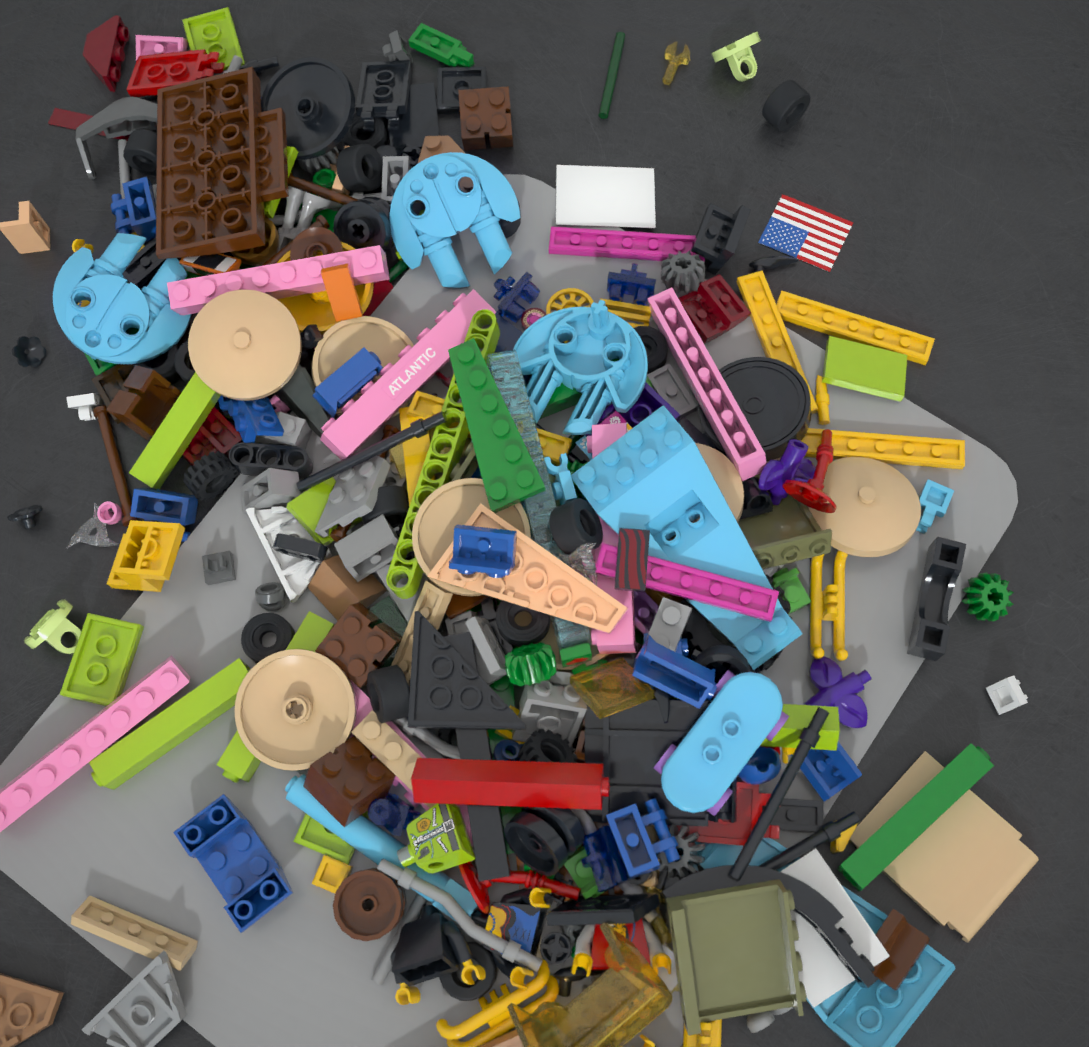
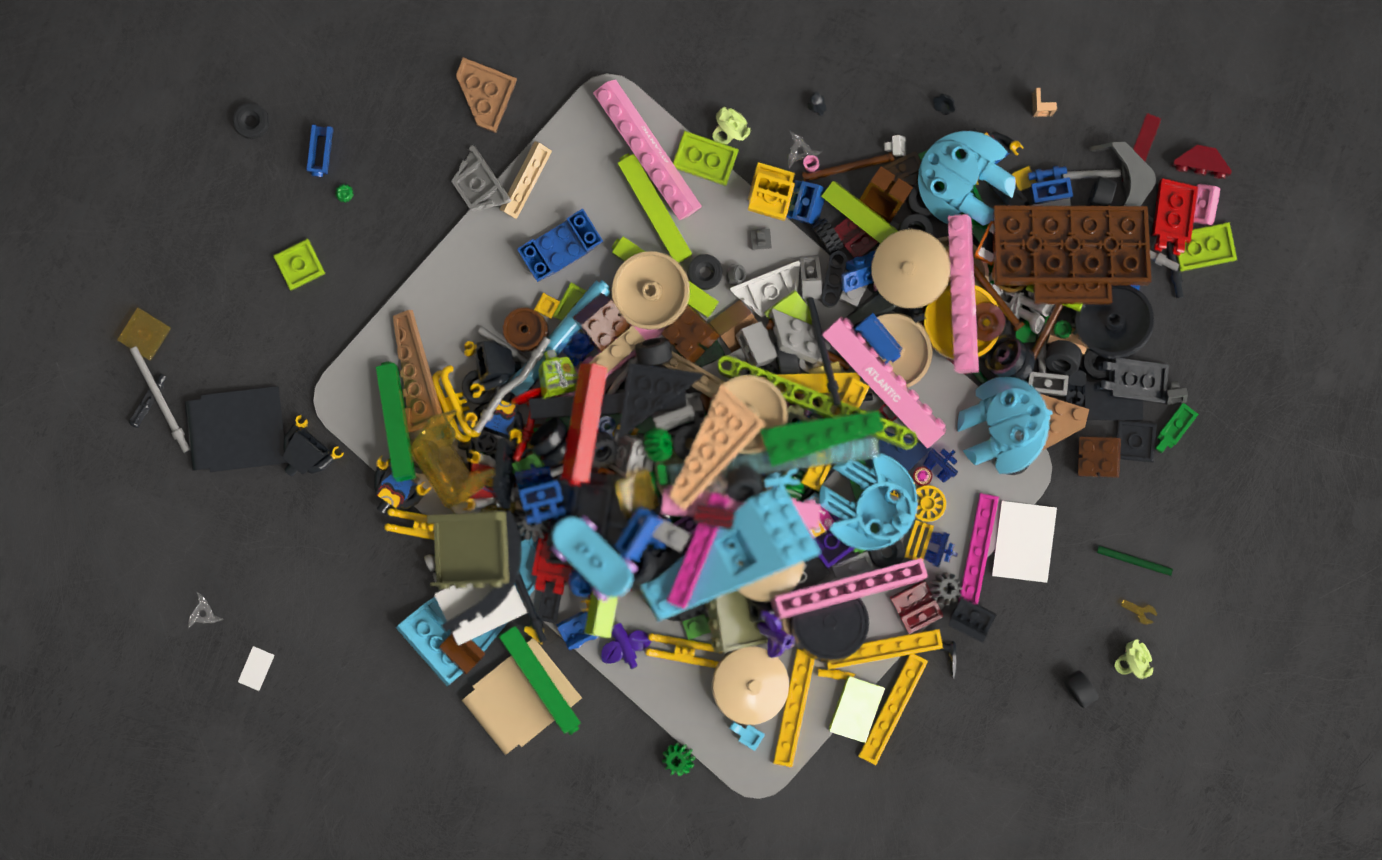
camera: 90 degrees right, 15 degrees up
(300, 548) = (763, 297): black beam -> none
(341, 292) = (944, 339): orange tile -> none
(483, 550) = (729, 421): blue bracket -> none
(806, 232) = (977, 688): sticker -> none
(808, 738) = (590, 613): black bar -> none
(812, 491) = (758, 648): red dish -> none
(939, 577) = (679, 721): black arch -> none
(1006, 695) = (611, 758): white tile -> none

